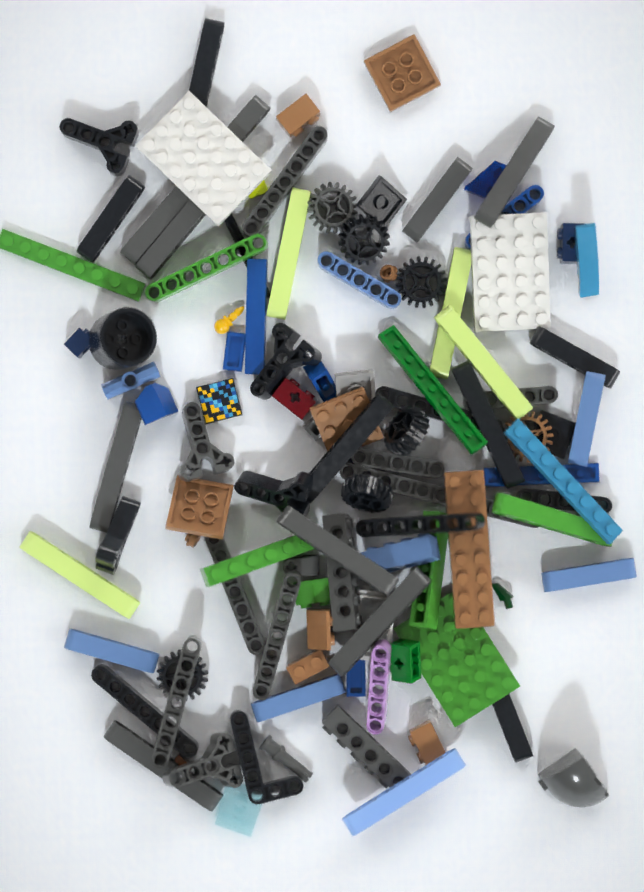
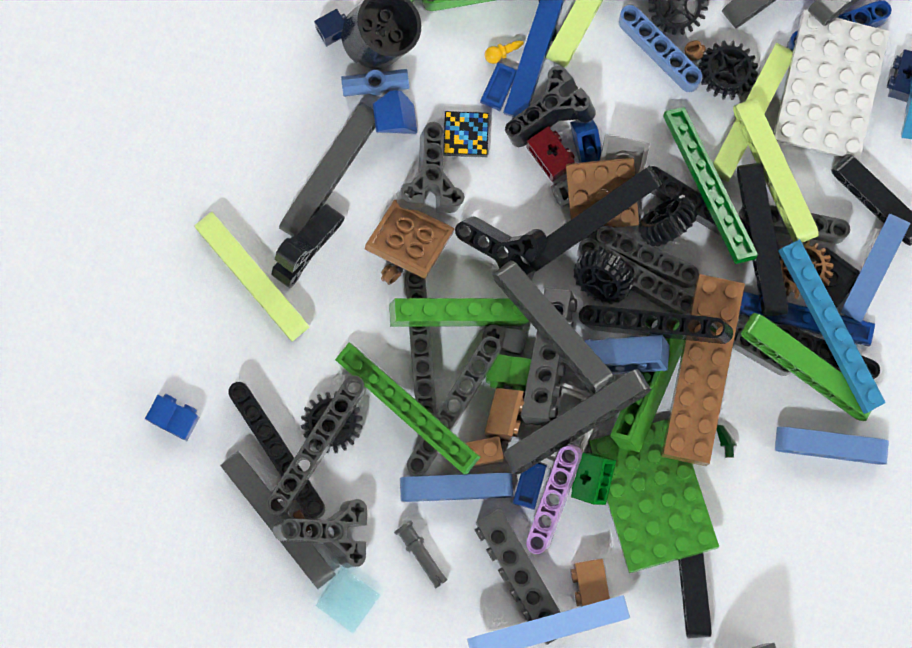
camera: 15 degrees right, 10 degrees down
(53, 709) = (172, 417): none -> blue brick
(111, 650) = (260, 371): medium blue beam -> none
(240, 649) = (408, 409): none -> bright green plate
(253, 765) = (382, 549): black beam -> none

